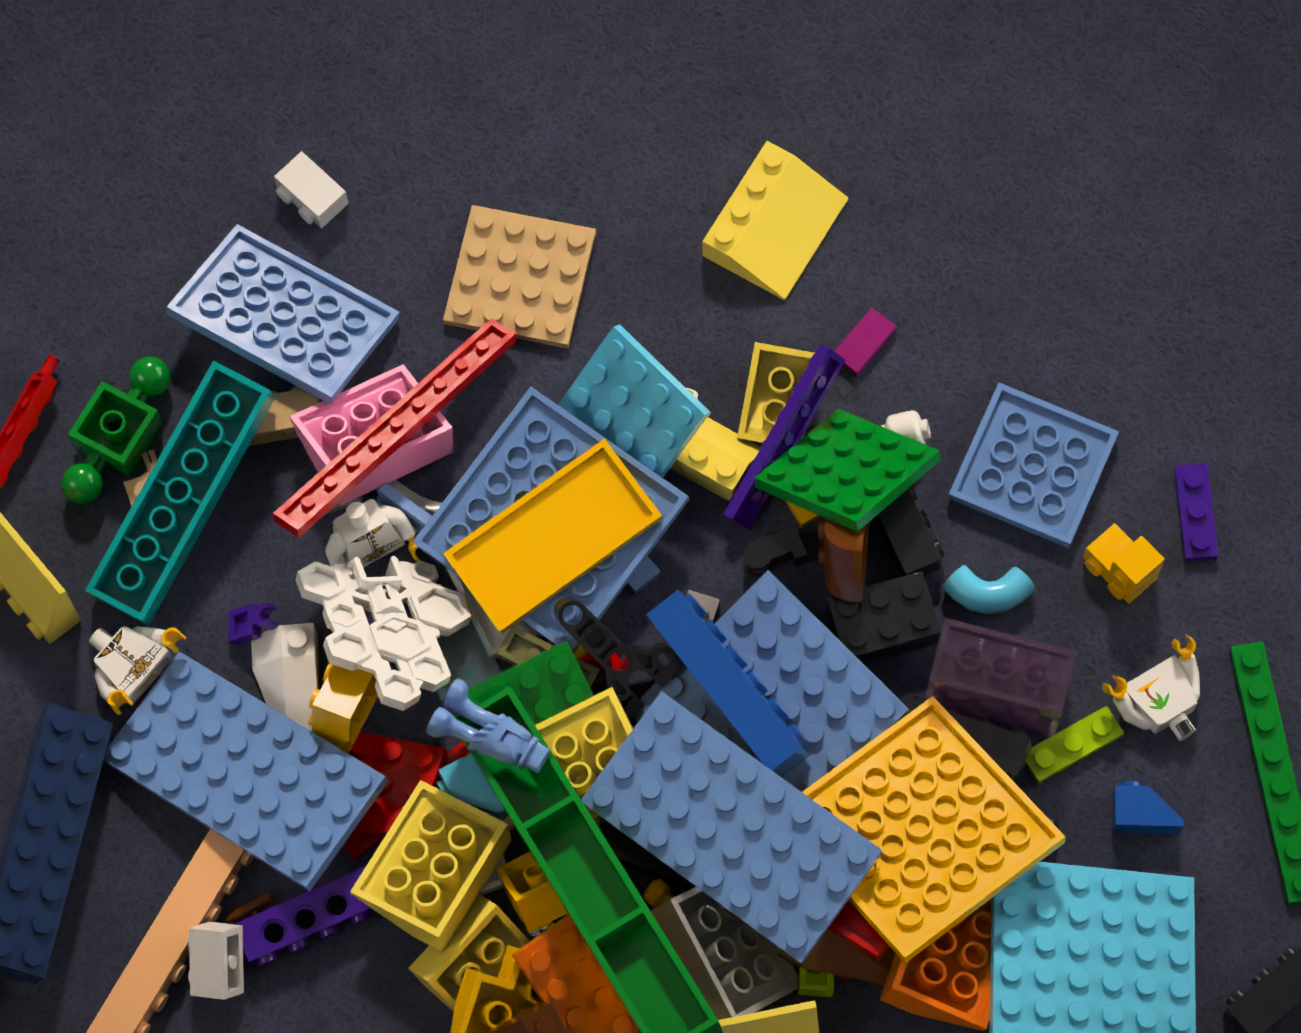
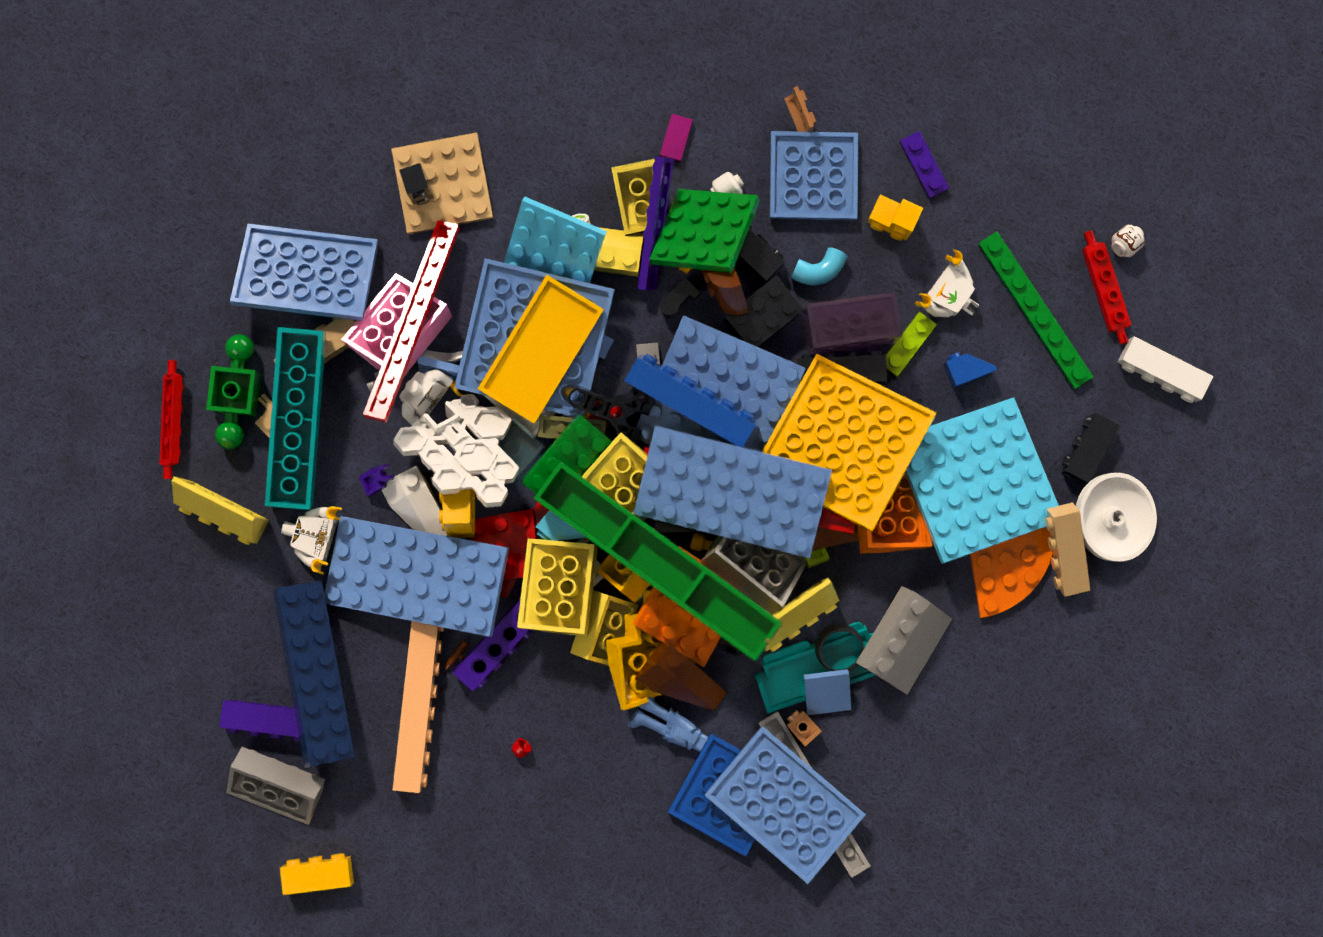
camera: 30 degrees left, 15 degrees up
(216, 960) = (452, 699): white brick -> none
(310, 190) = (284, 181): white brick -> none
(483, 257) = (416, 184): none -> black brick
(498, 739) = (570, 498): medium blue piece -> none
(774, 221) = (587, 81): light yellow slope -> none
(1049, 362) = (802, 118): none -> medium nougat piece

